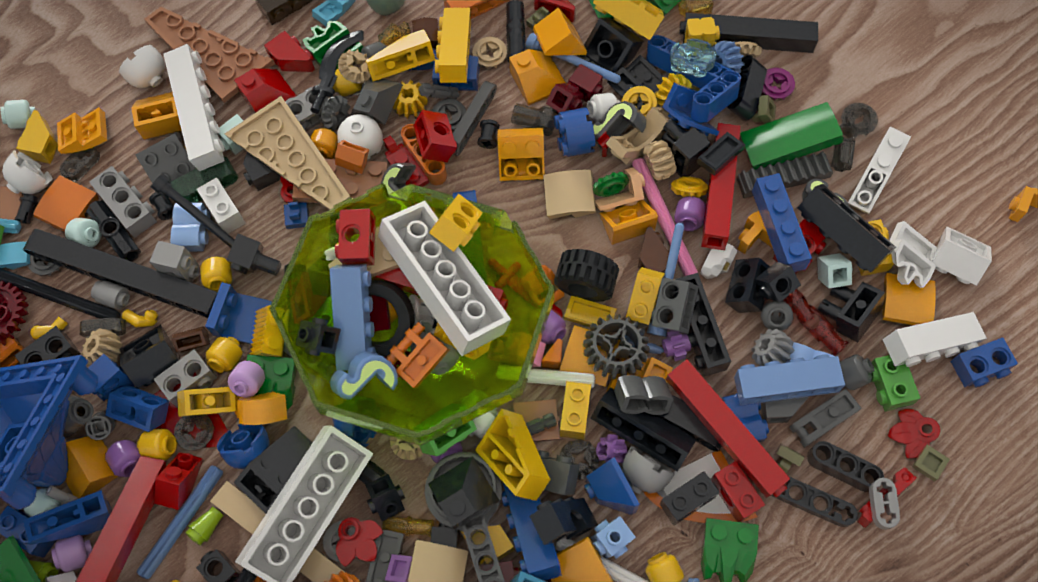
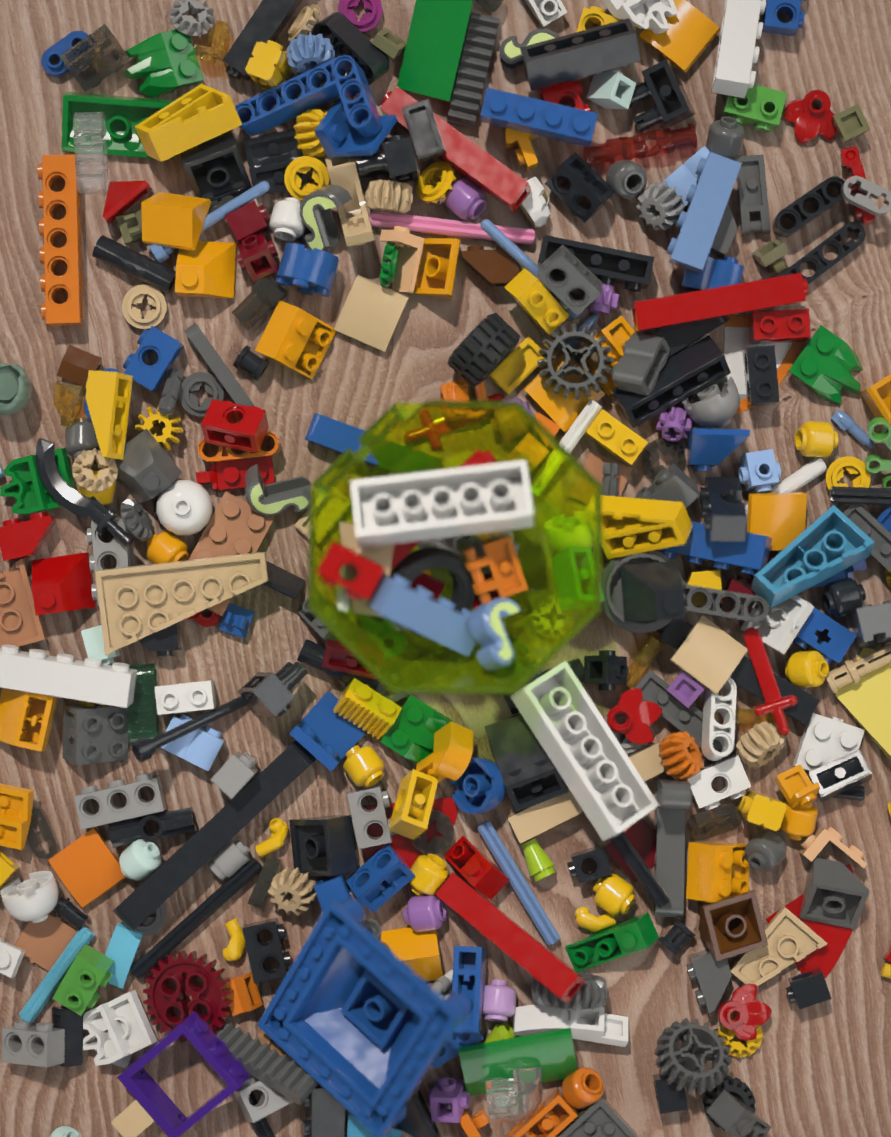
camera: 65 degrees left, 20 degrees up
(101, 422) = (386, 919): dark grey wheel -> none
(162, 205) = (155, 762): black bush -> none
(179, 337) = (324, 791): reddish brown piece -> none
(214, 271) = (267, 736): yellow head -> none
(246, 379) = (414, 752): lavender head -> none
(317, 337) = (433, 658): black brick -> none
(351, 156) = (209, 527): orange piece -> none
(454, 45) = (127, 344): yellow brick -> none
(457, 223) = (396, 461): yellow brick -> none
(602, 140) = (337, 242): red hand -> none
(683, 62) = (310, 101): clear light blue plate -> none
(777, 282) = (599, 161): black brick -> none

